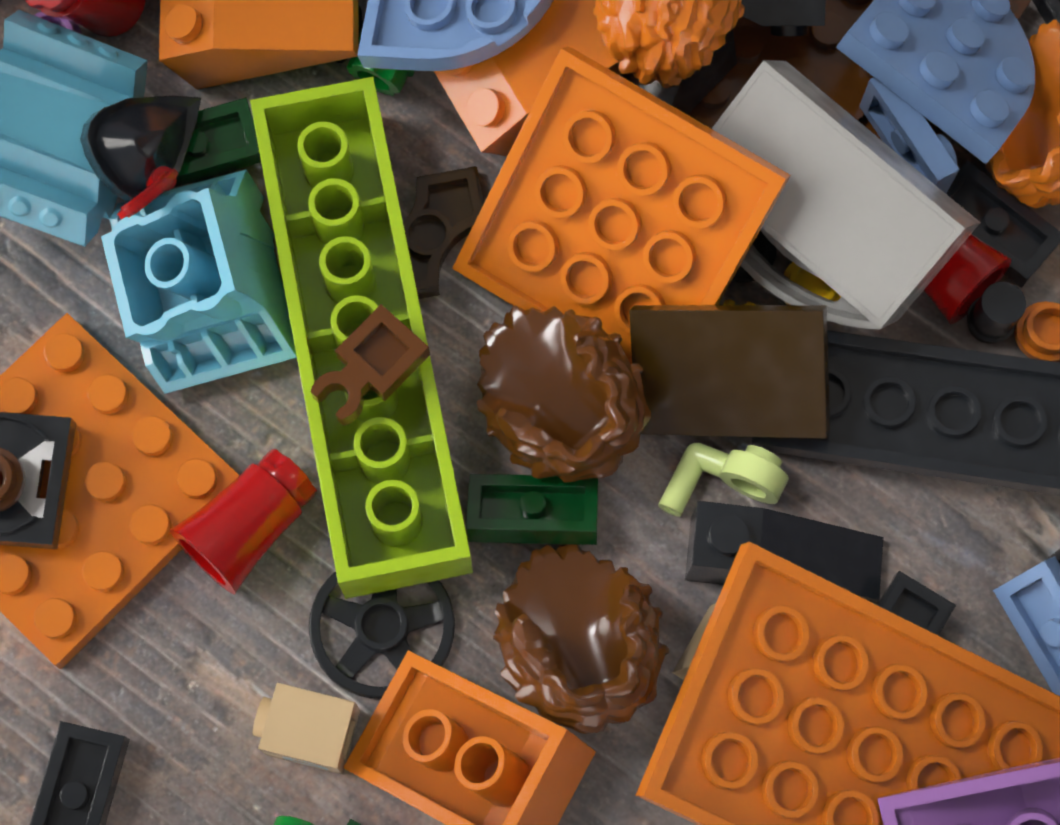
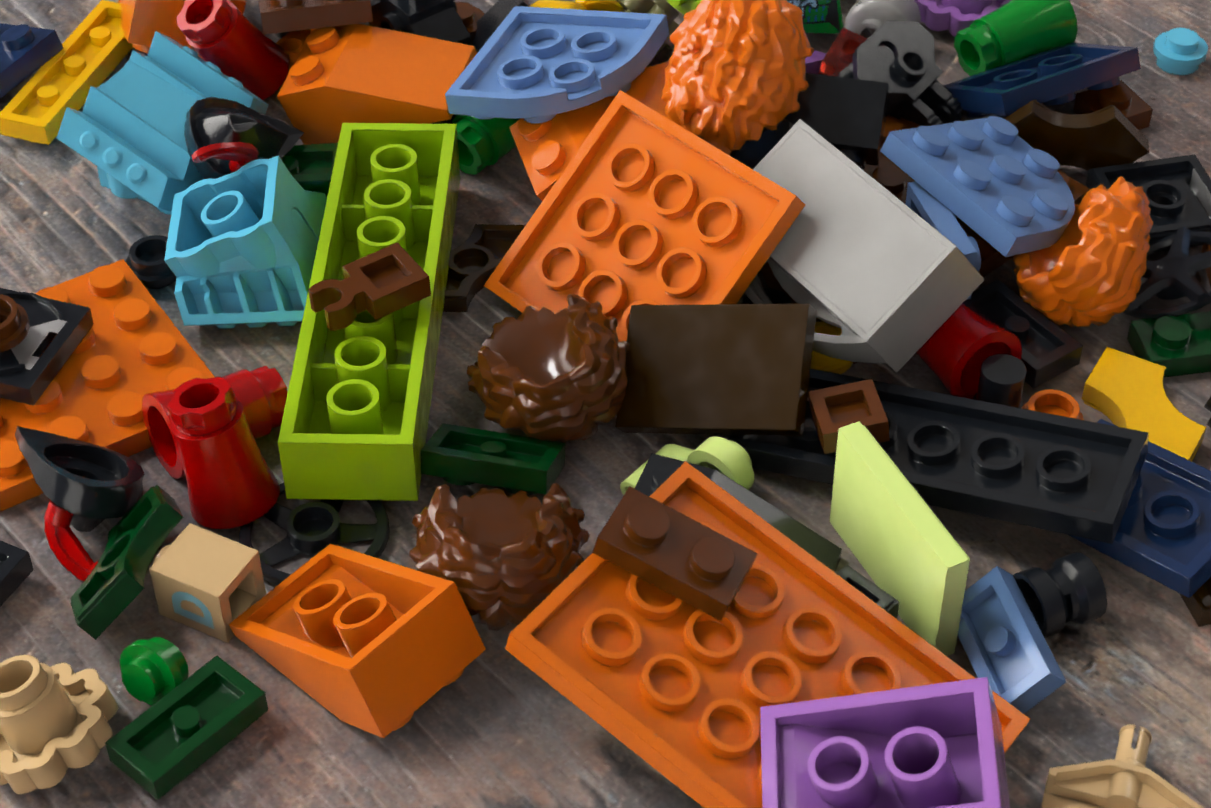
camera: 15 degrees right, 30 degrees down
(97, 309) = (148, 262): none -> black plate
(147, 640) = (83, 488): none -> black piece
(222, 754) = (124, 563): none -> dark green tile
(281, 593) = (219, 455): none -> red plant
(768, 660) = (674, 553): none -> reddish brown plate
(873, 408) = (845, 405): none -> reddish brown plate
(949, 549) = (898, 538): none -> yellowish green tile

